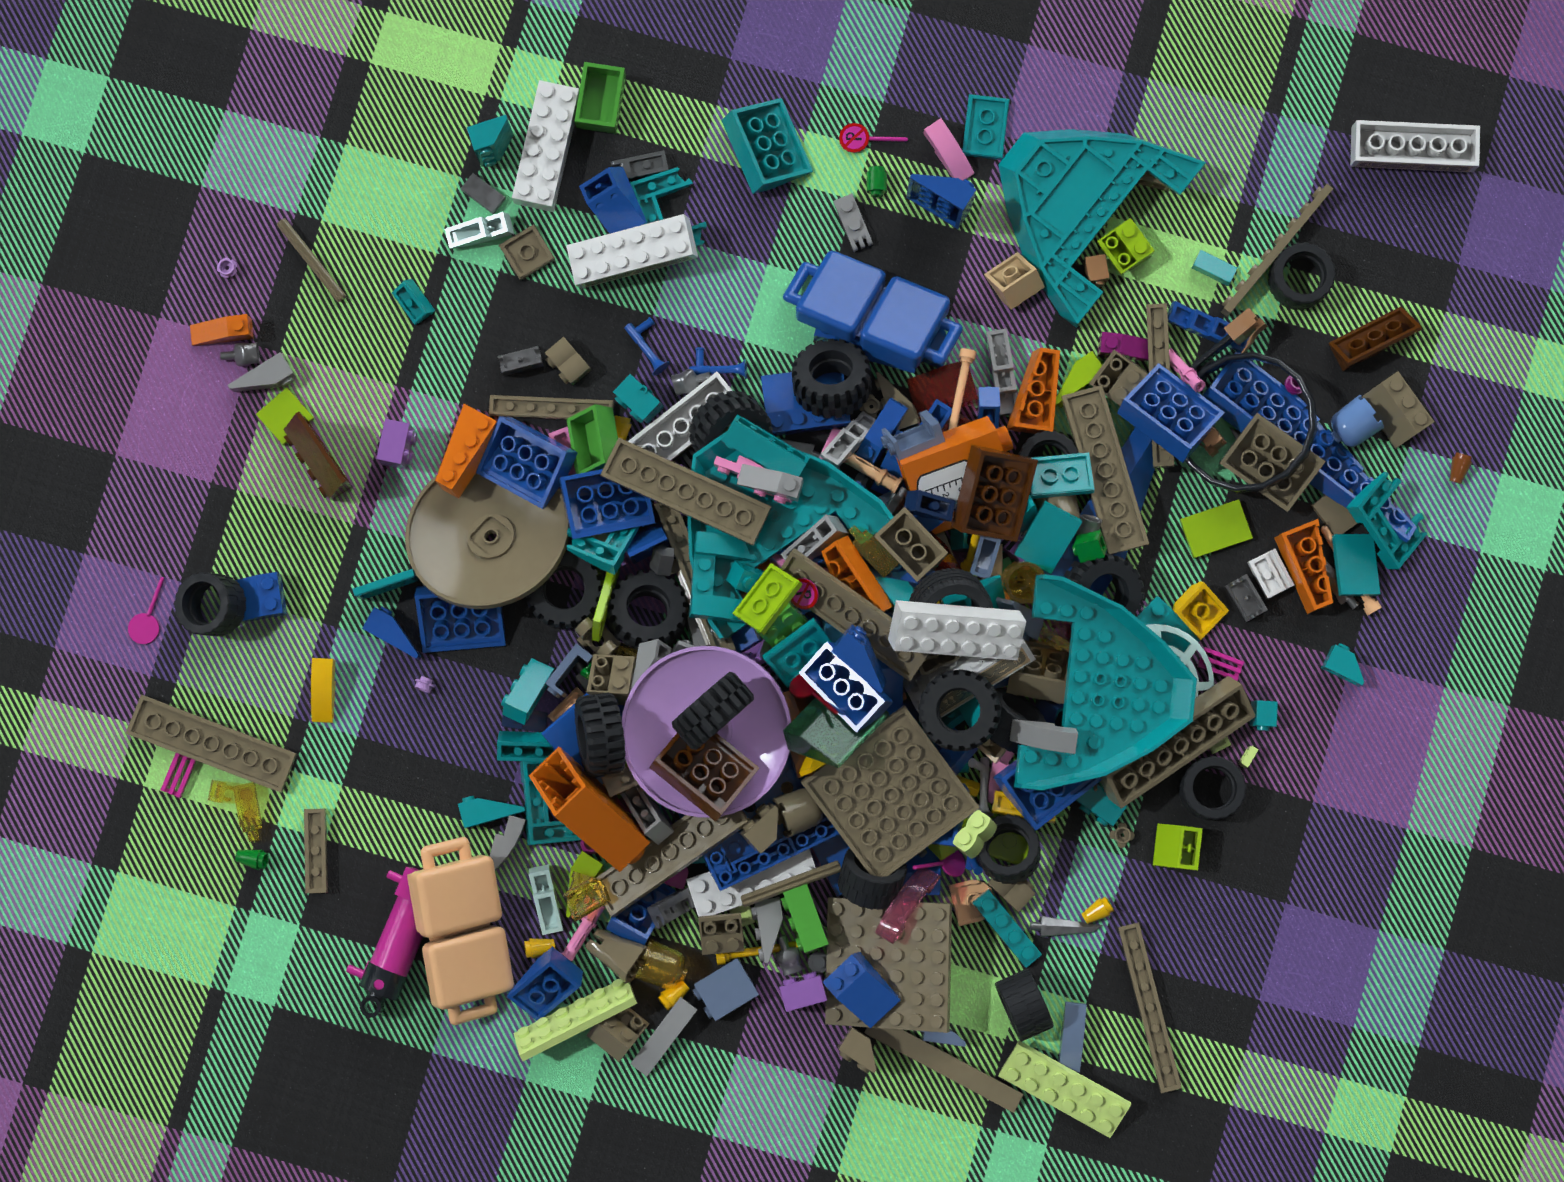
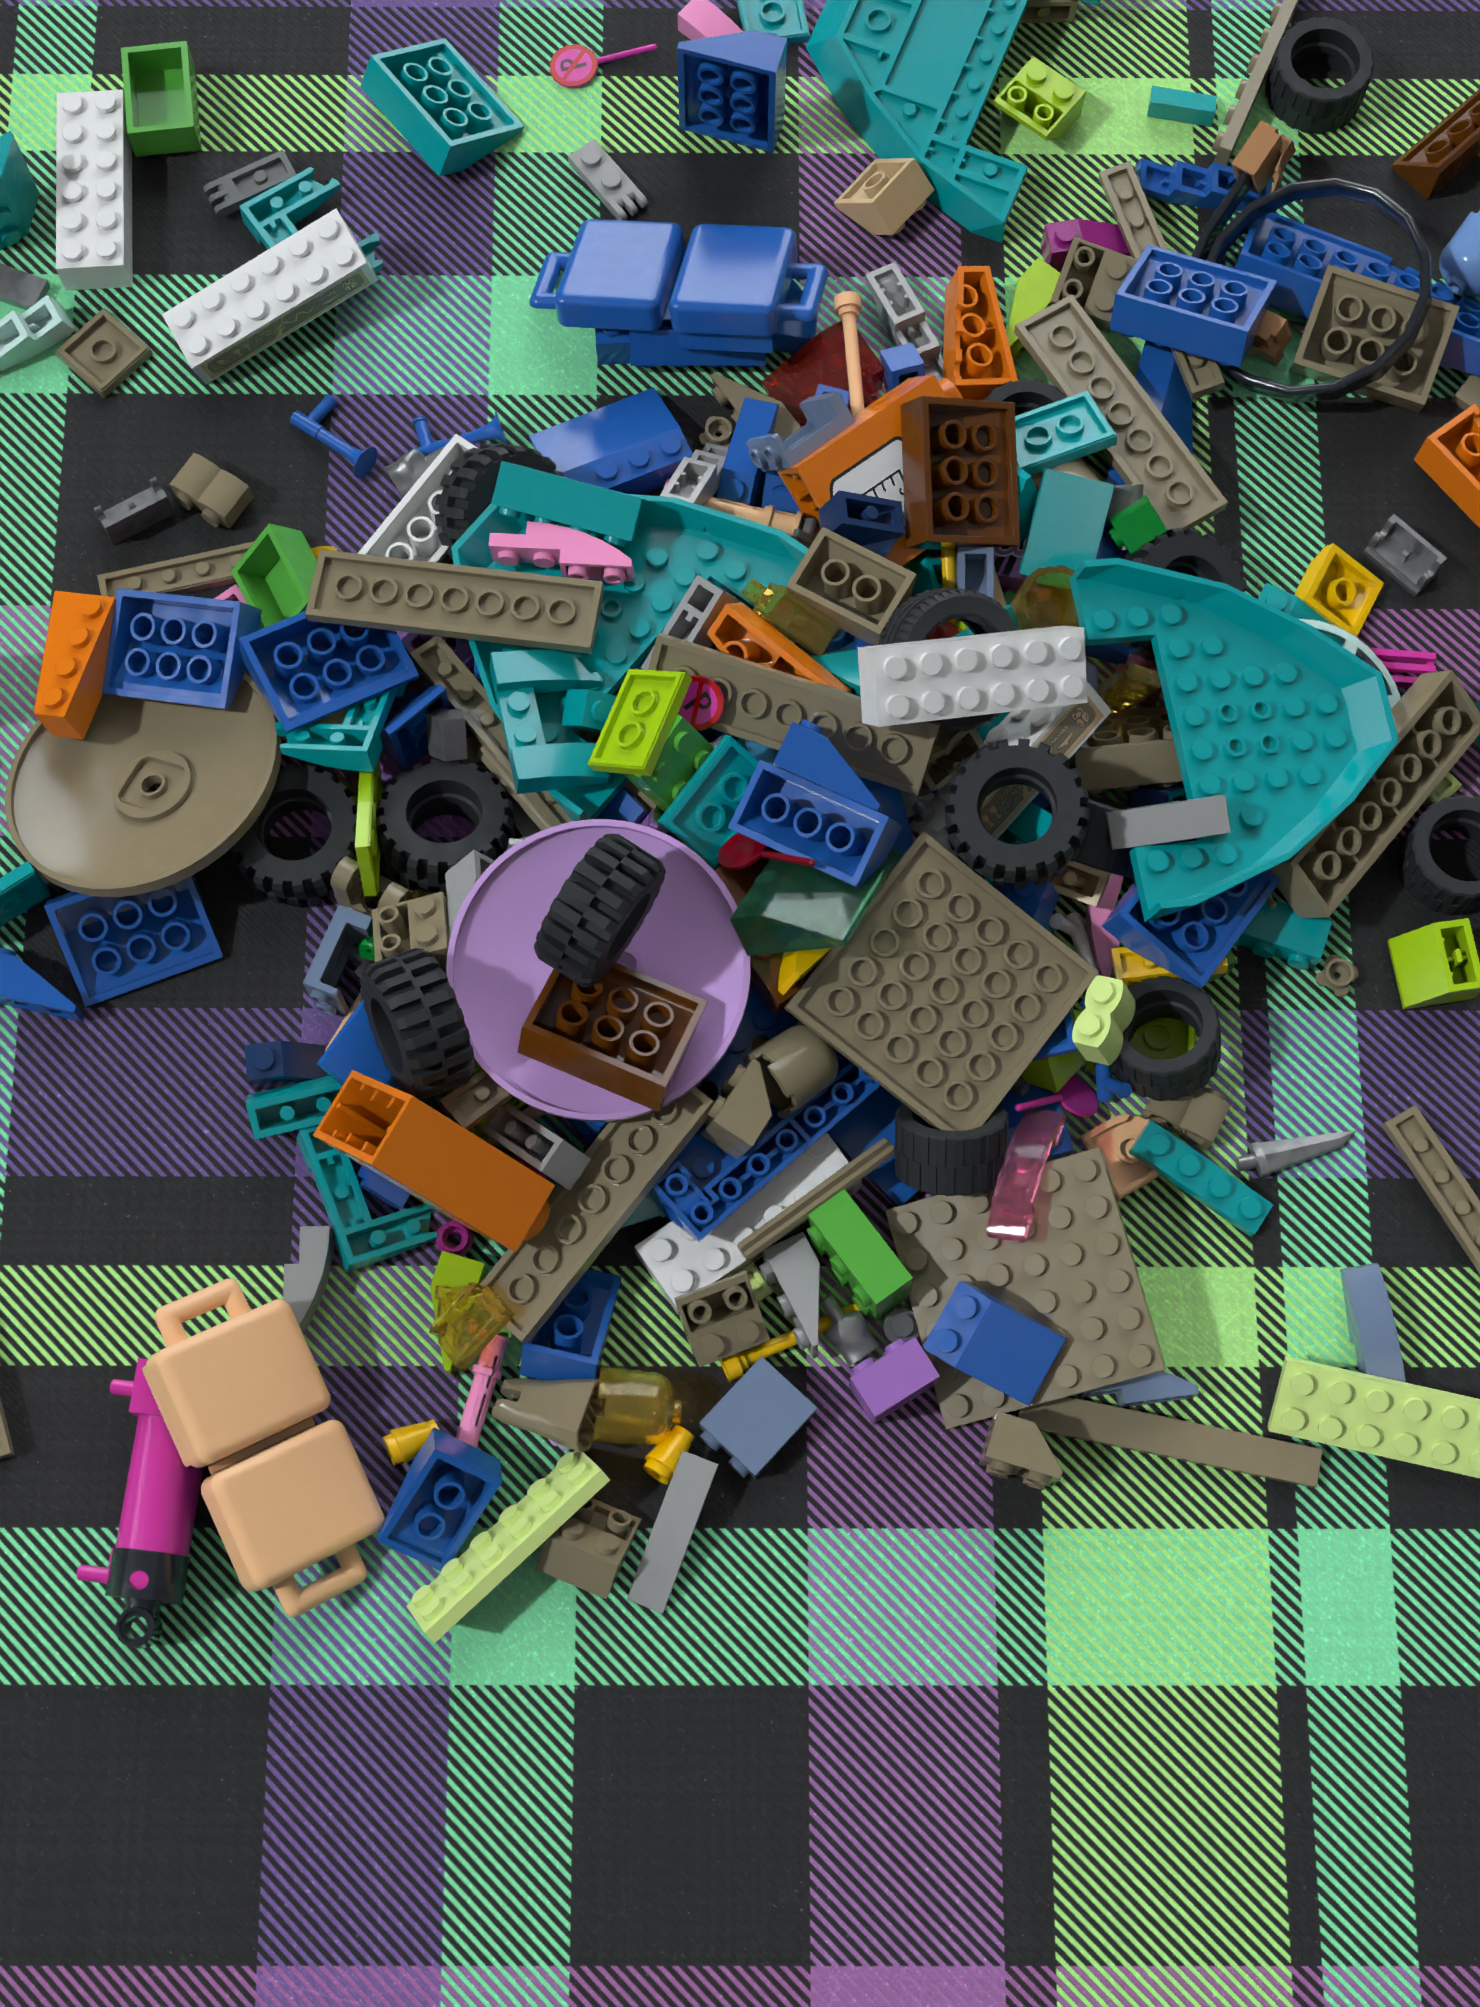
camera: 20 degrees left, 10 degrees down
(424, 684) = (100, 1056): lavender plate -> none
(482, 811) = (254, 1235): teal slope -> none
(526, 691) = (275, 1013): teal brick -> none
(545, 899) = (402, 1356): light aqua slope -> none
(613, 200) = (215, 228): blue slope -> none
(638, 399) = (339, 511): teal brick -> none
(671, 907) = (622, 1303): flat silver hinge -> none
(679, 879) = (618, 1255): dark pink tile -> none
(771, 482) = (593, 541): light grey slope -> none
(828, 358) = (643, 394): black tyre -> none
(876, 181) = (627, 111): green brick -> none
(1024, 1004) = (1277, 1289): black tyre -> none
(1096, 269) = (1005, 141): medium nougat brick -> none
(1099, 909) = (1341, 1106): yellow cone -> none
(1187, 373) = (1215, 249): bright pink pin -> none
(1216, 529) = (1318, 470): lime tile -> none
(1270, 573) = (1429, 510): white plate -> none
(1292, 386) = (1364, 231): magenta plate -> none

